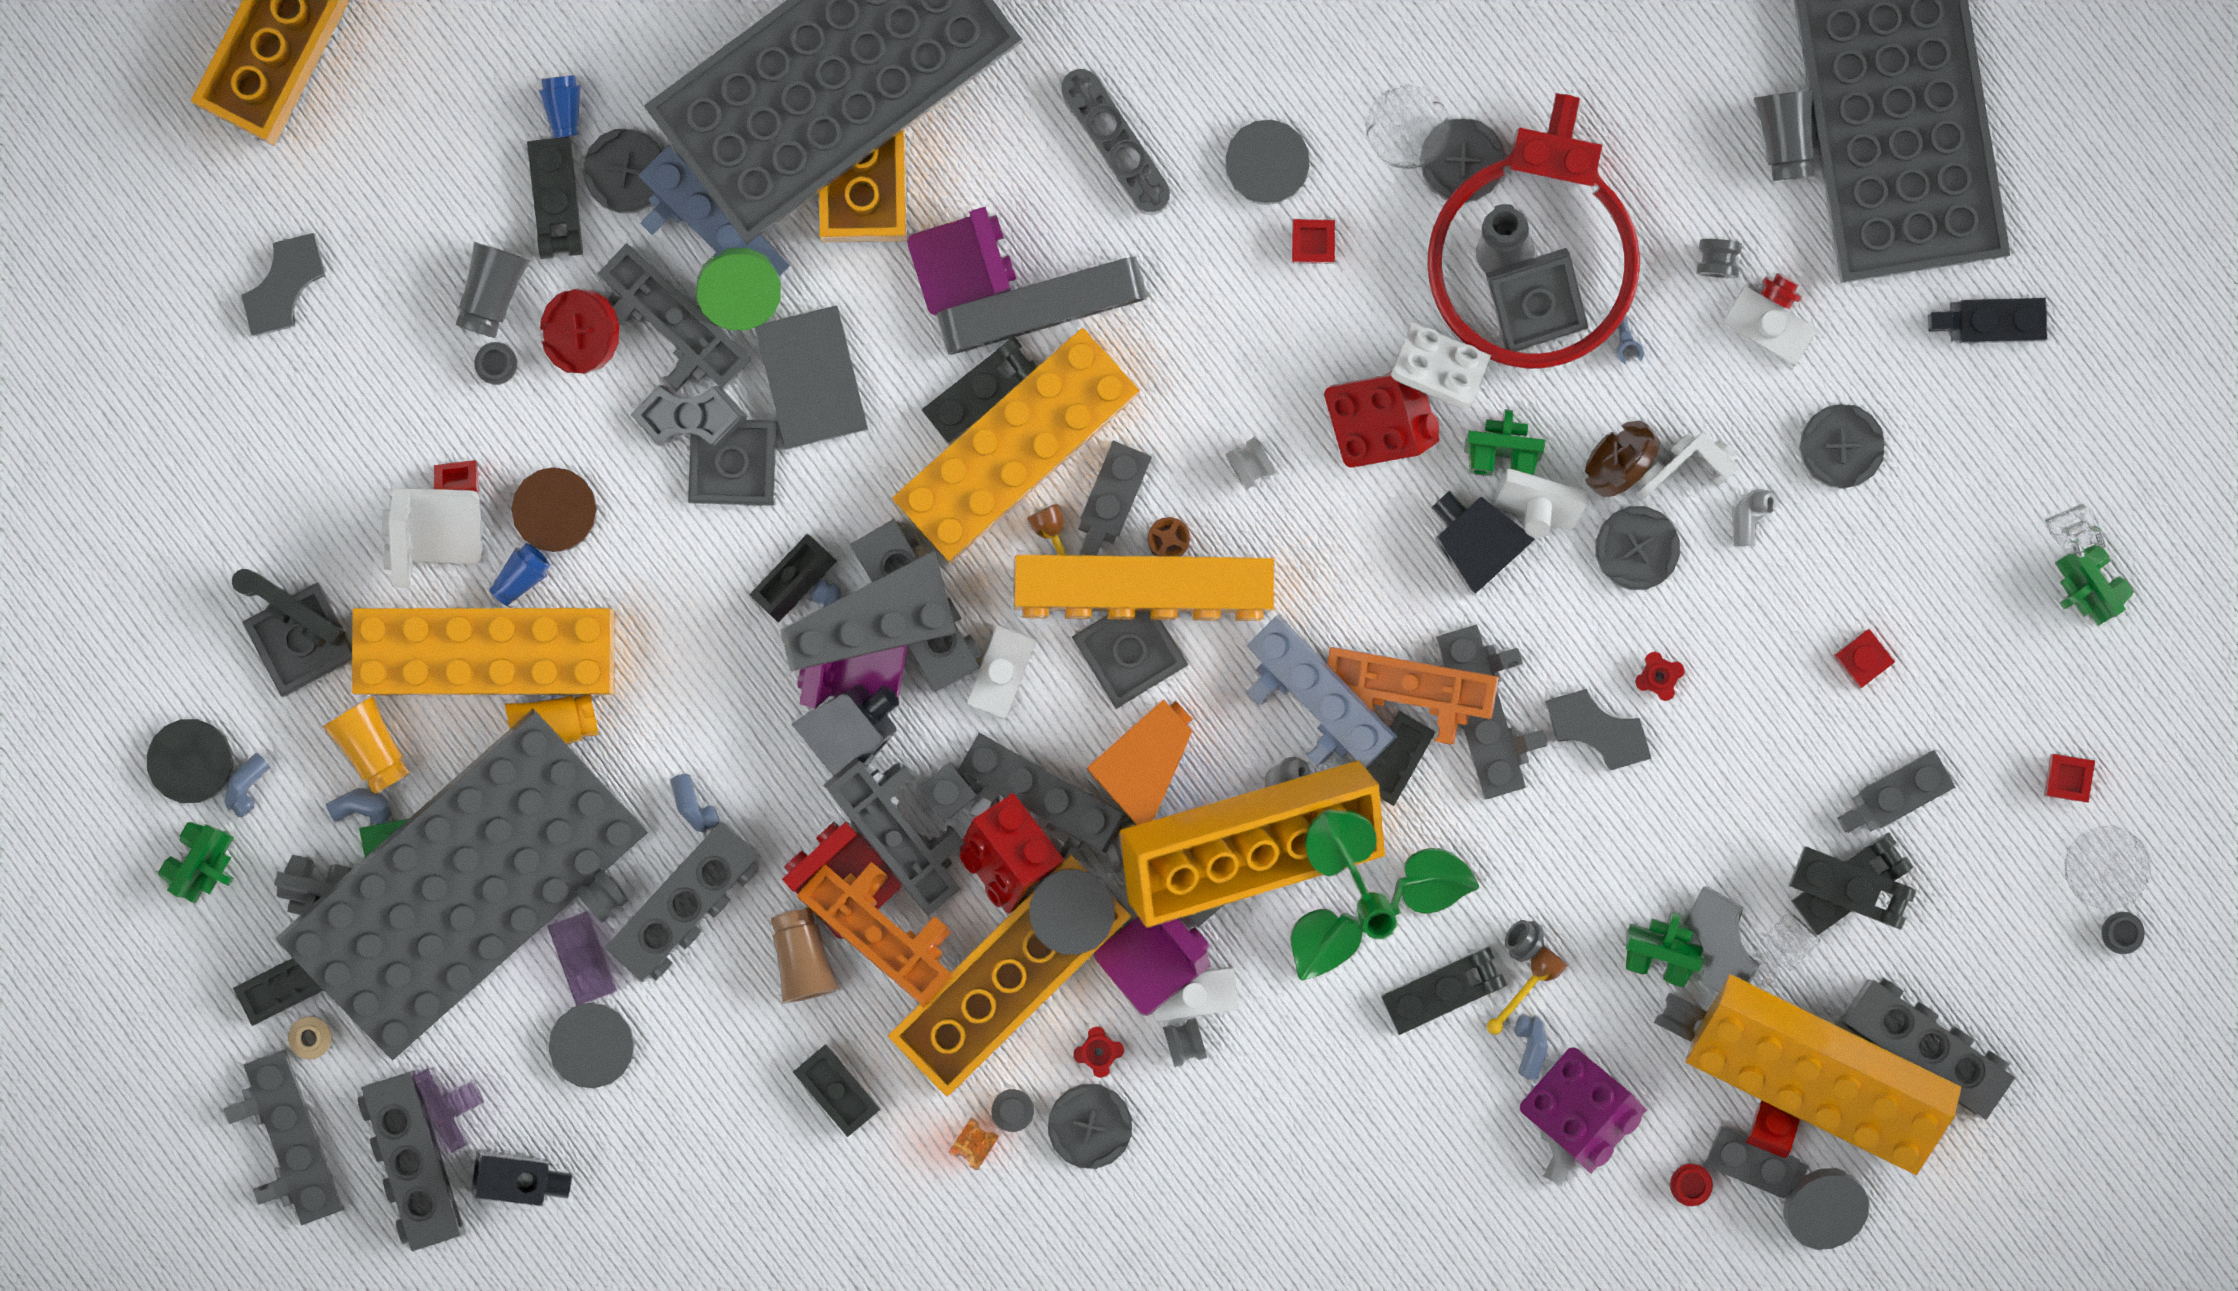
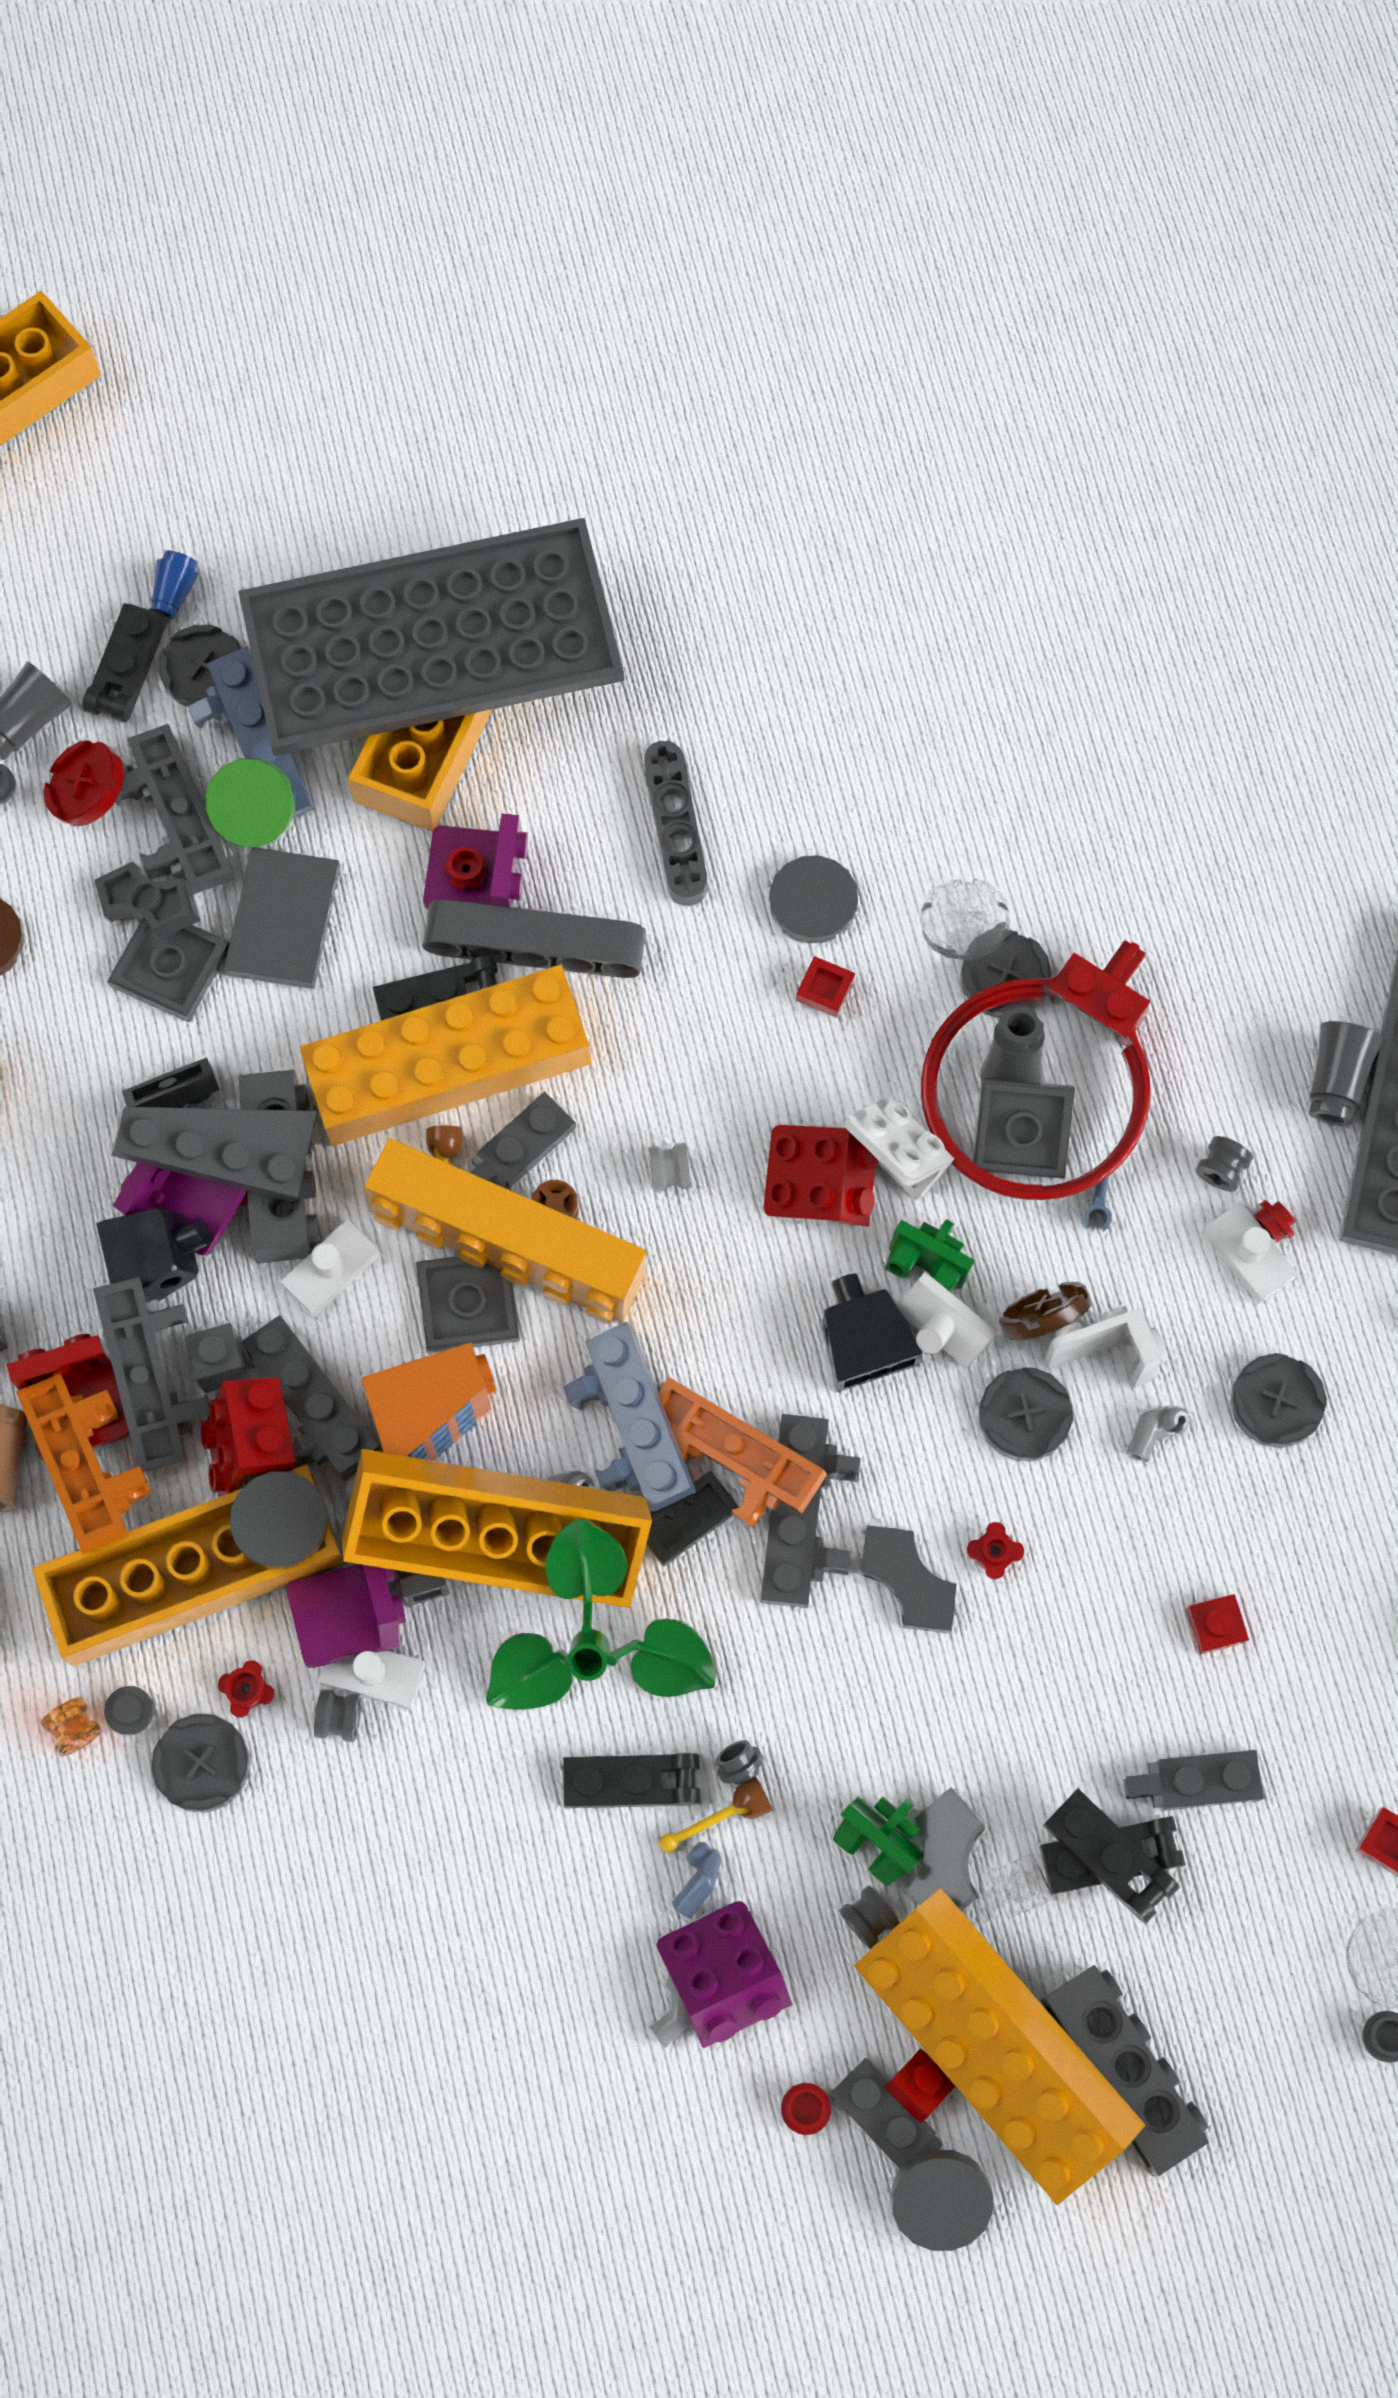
camera: 30 degrees right, 15 degrees down
(955, 257) = (466, 857): none -> red plate

